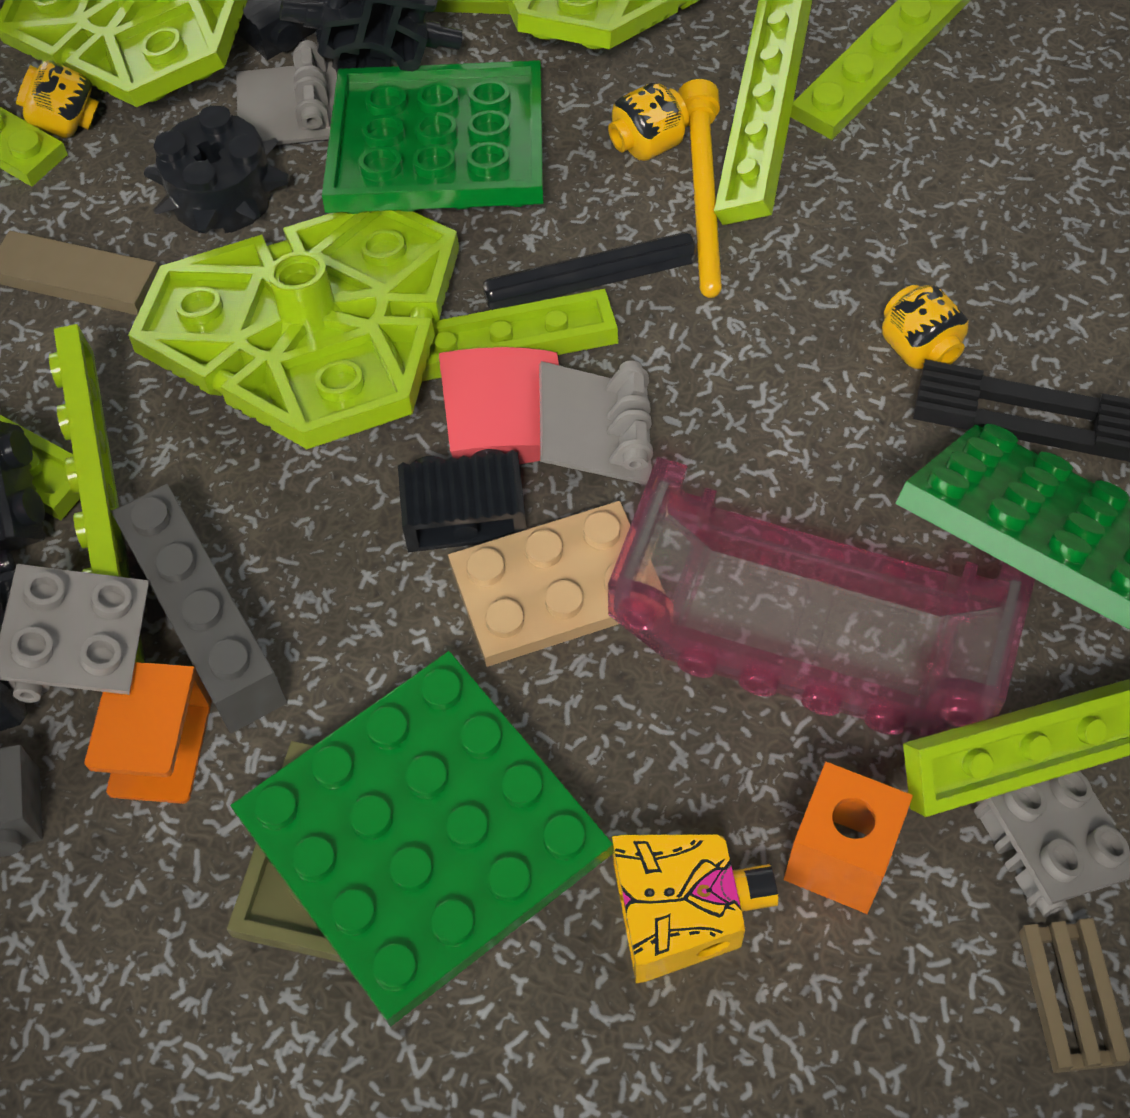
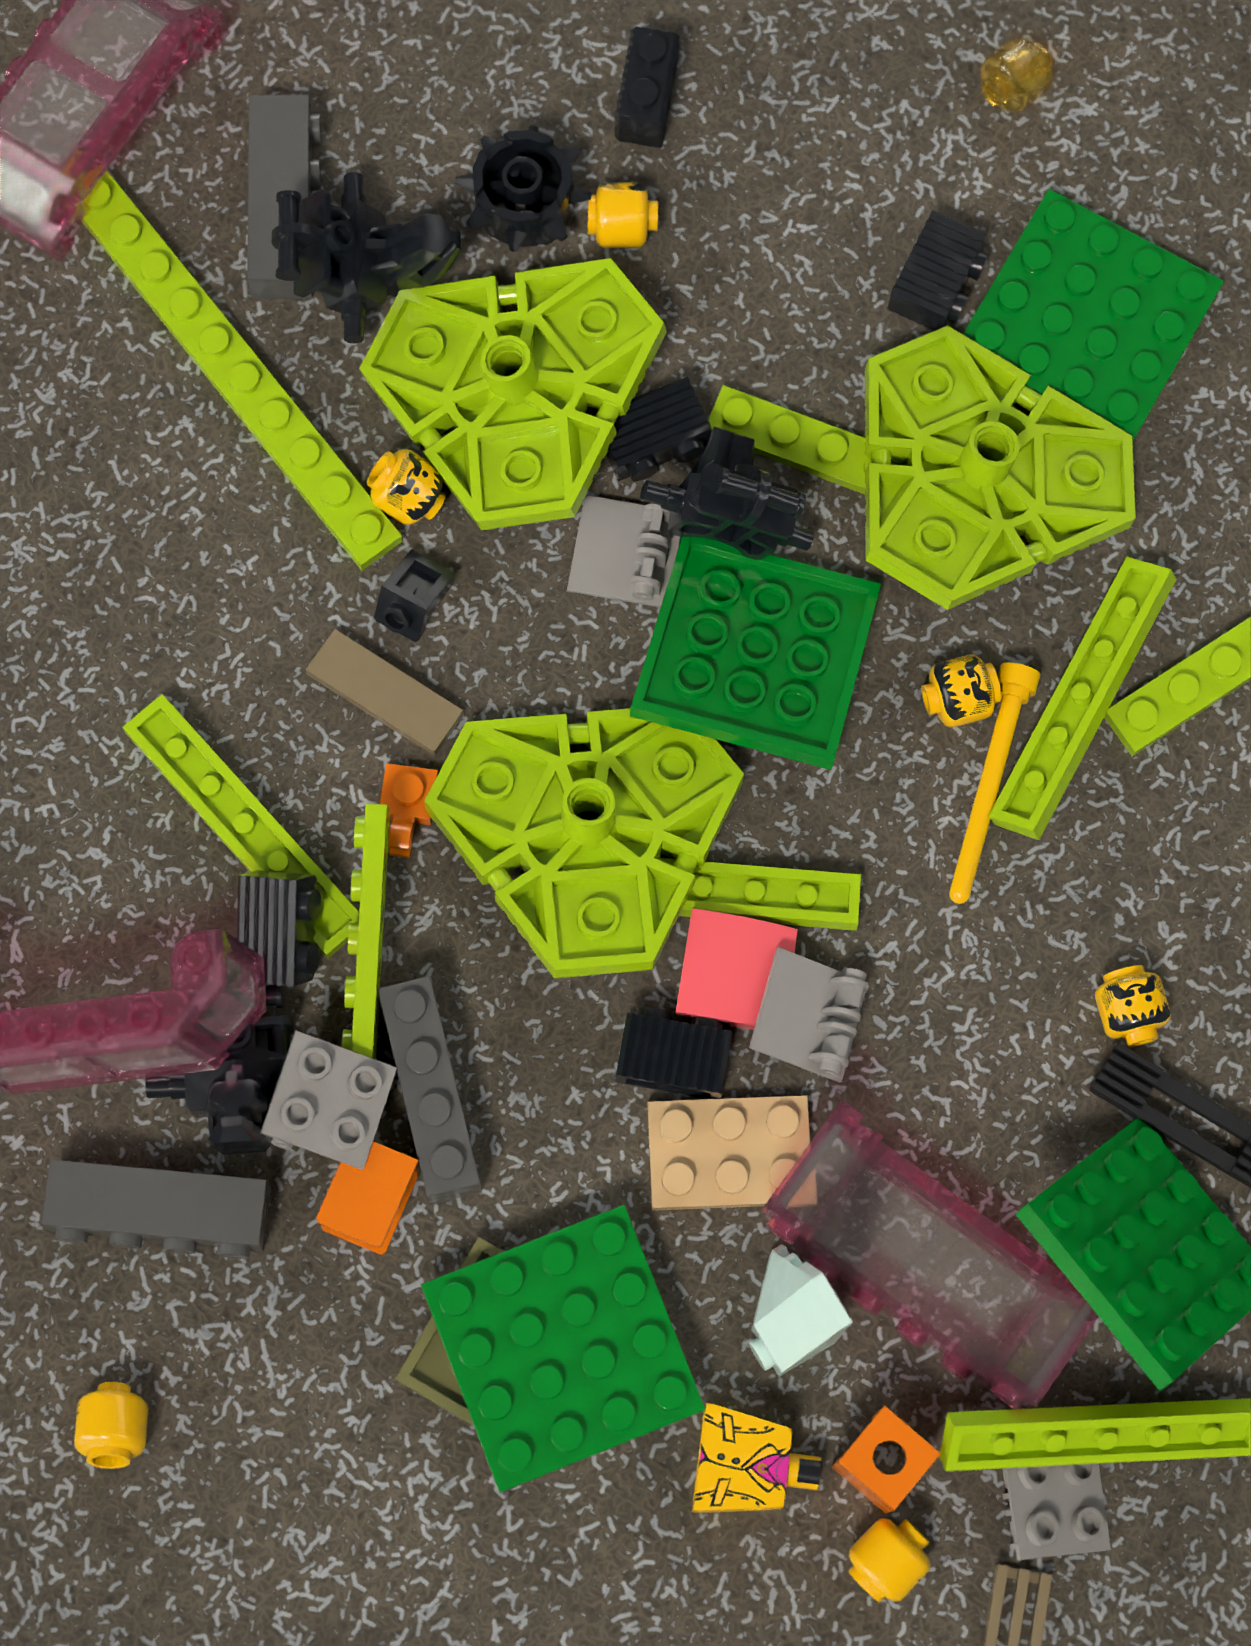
camera: 10 degrees right, 15 degrees up
(77, 186) = (412, 595): none -> black bracket
(116, 362) = (405, 793): none -> orange plate
(214, 171) = (534, 657): black brick -> none
(590, 271) = (855, 843): black axle -> none
(691, 691) = (794, 1313): none -> light aqua wedge
(895, 958) = (889, 1559): none -> yellow head

